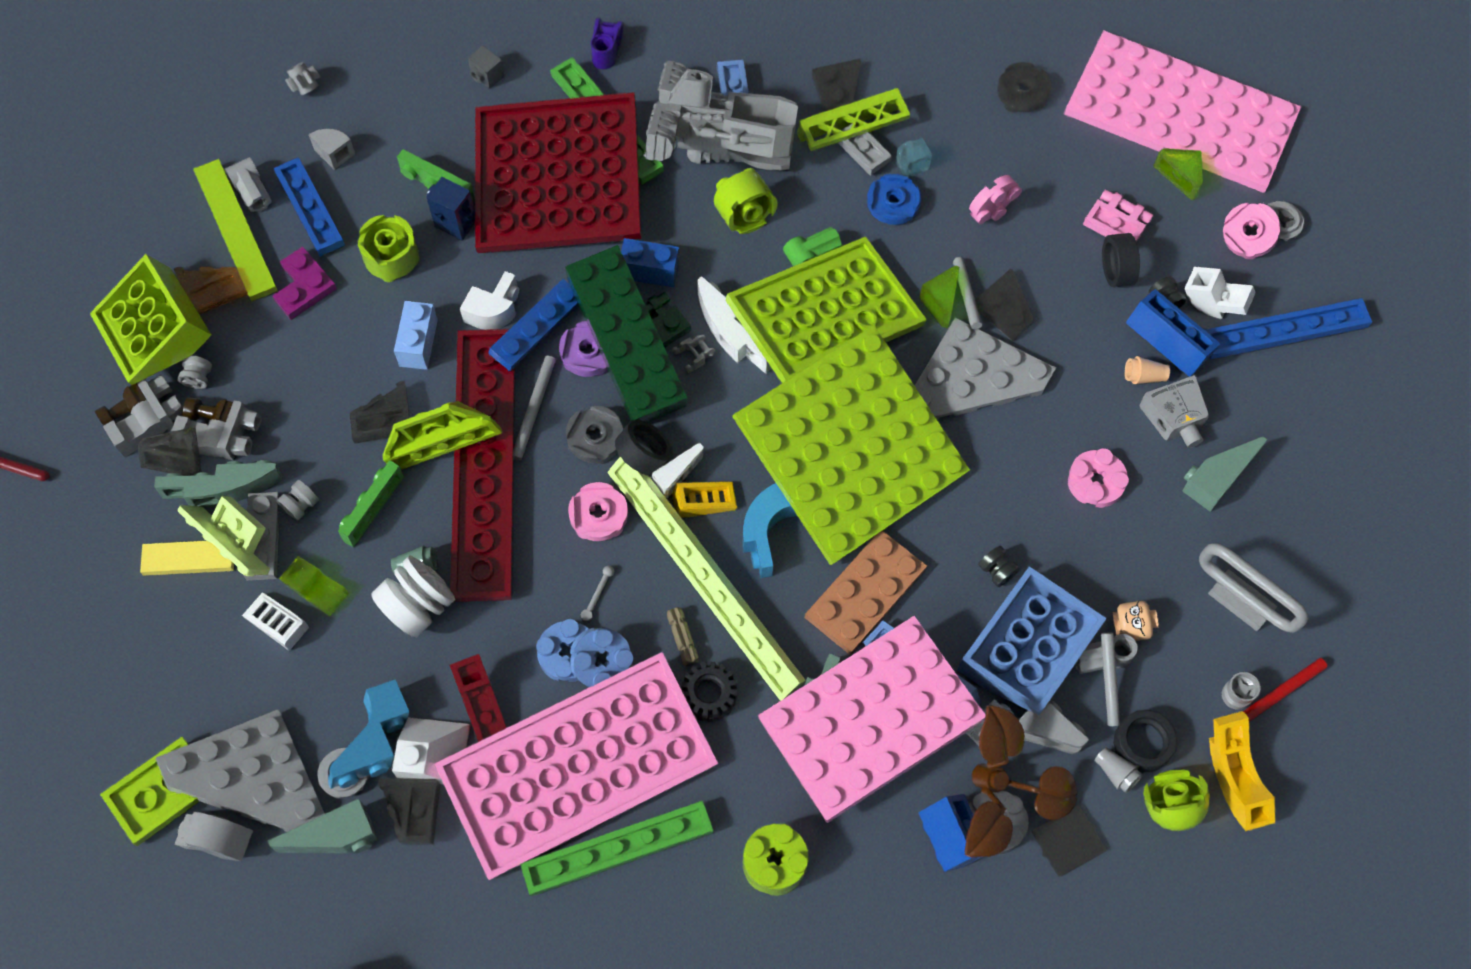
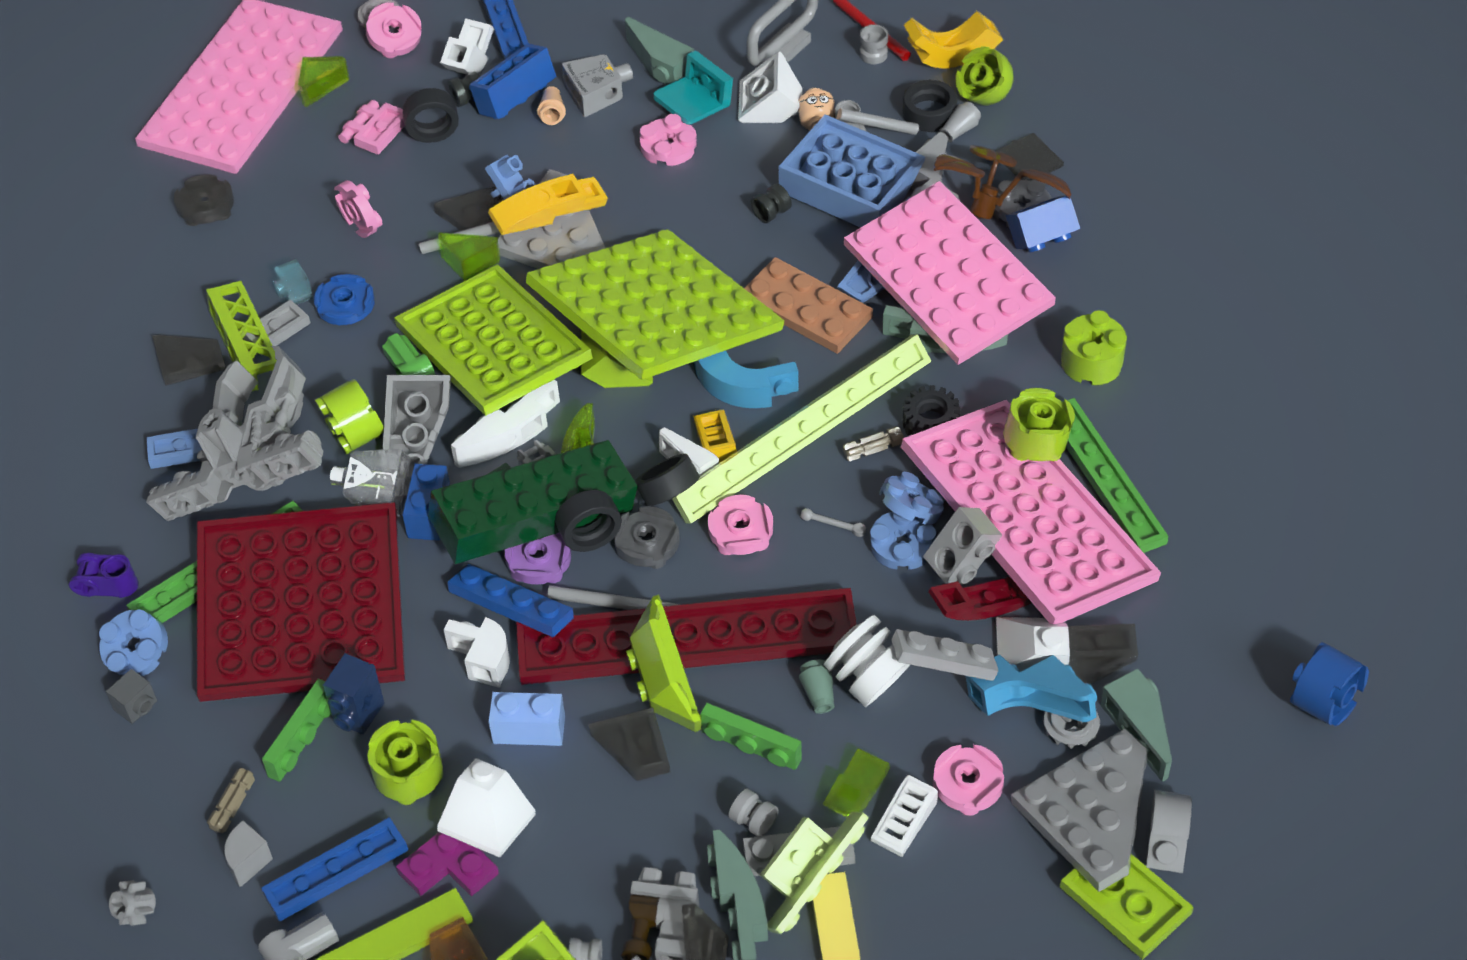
camera: 90 degrees left, 15 degrees down
(310, 691) = (964, 796): none -> bright pink plate
(332, 304) = (486, 809): none -> white slope
(384, 137) = (230, 800): none -> dark tan axle
(394, 653) = (944, 654): none -> light grey plate
(522, 61) = (121, 630): none -> medium blue plate
(530, 693) = (963, 545): none -> light grey brick
(598, 379) = (580, 507): none -> black tyre
(673, 221) = (374, 477): none -> clear torso
(674, 766) = (1038, 425): none -> lime brick
(719, 385) = (580, 430): none -> clear neon green slope
(732, 248) = (415, 415): none -> light grey wedge
(988, 356) = (544, 201): none -> yellow slope
(1014, 322) = (506, 176): none -> medium blue hips
(1158, 502) = (699, 93): none -> teal bracket
(1161, 576) = (769, 92): none -> white slope

